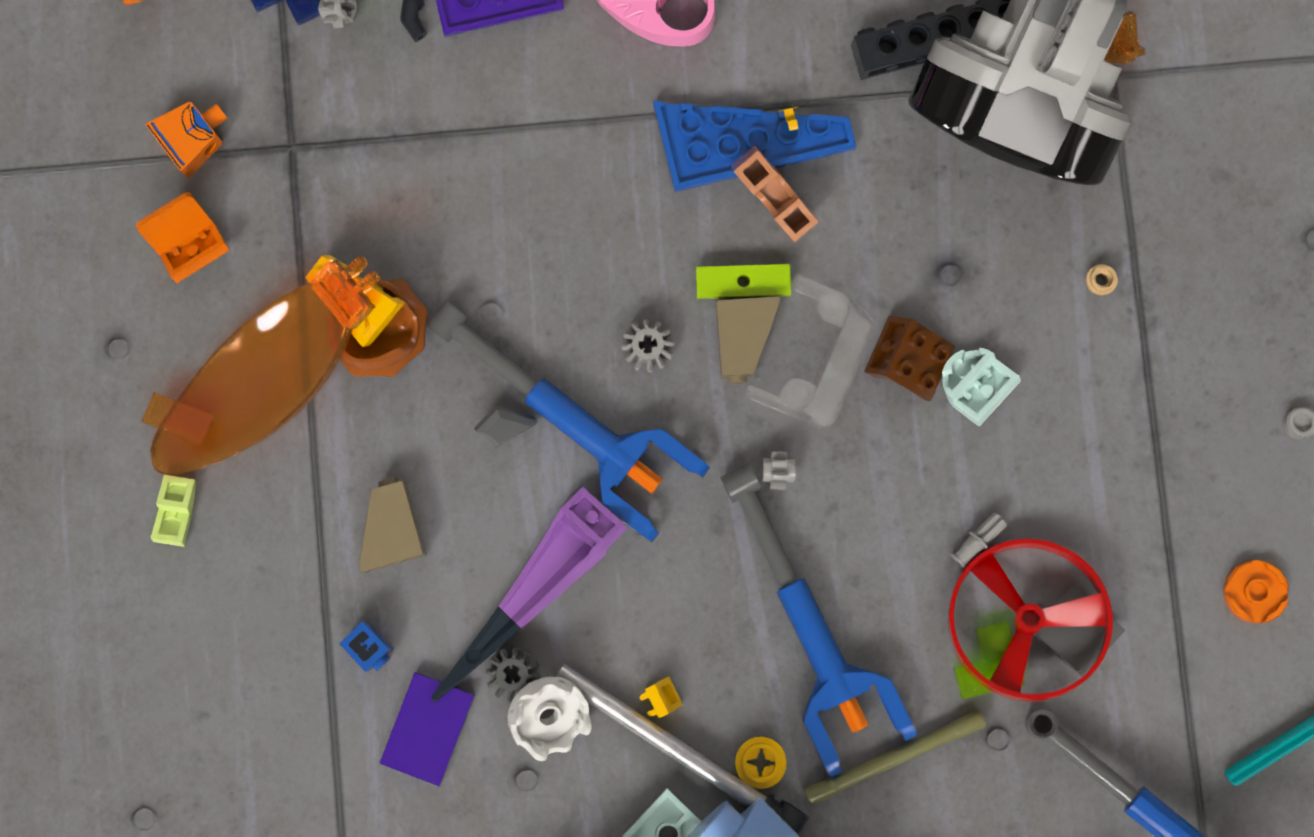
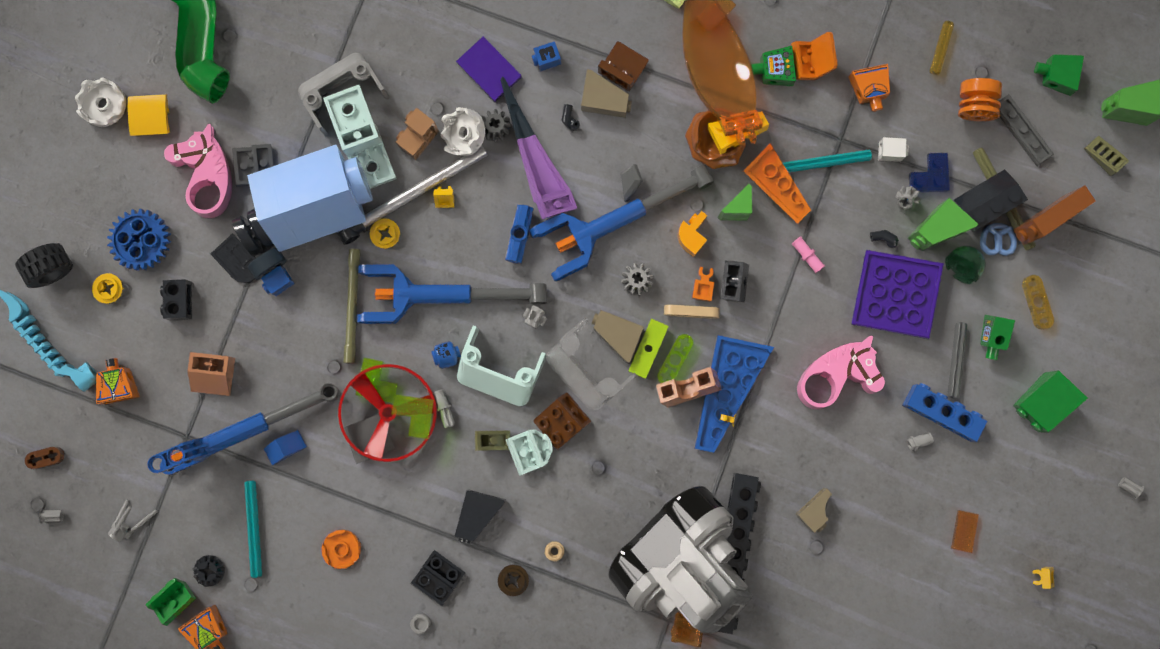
camera: 125 degrees right, 0 degrees up
(80, 60) = (942, 47): none -> clear yellow axle
(224, 287) = (776, 67): none -> green torso
(273, 62) = (892, 149): none -> white brick
(327, 522) = (623, 66): none -> reddish brown bracket
(337, 153) = (827, 161): none -> teal axle
(402, 210) = (777, 183): none -> orange wing
(451, 565) = (567, 118): none -> black arm
(465, 243) = (740, 207): none -> bright green slope
(491, 114) = (808, 255): none -> bright pink pin
(548, 299) = (688, 237): none -> light orange brick
(584, 200) = (734, 281): none -> black brick
(585, 787) = (418, 134): none -> medium nougat brick
(614, 243) = (703, 288): none -> orange plate
(657, 244) = (691, 311): none -> tan beam
(685, 550) = (517, 245): none -> blue piece
(762, 245) = (677, 344): none -> clear neon green beam
(899, 575) = (445, 355): none -> blue head
(911, 519) = (511, 390): none -> light aqua windscreen
(991, 445) = (491, 440): none -> olive slope
(1005, 573) = (419, 411): none -> clear neon green plate
(1107, 415) = (476, 514): none -> black slope
(1153, 750) = (284, 447): none -> blue slope
(1186, 316) = (511, 589): none -> dark brown gear
(1224, 429) = (437, 578): none -> black slope

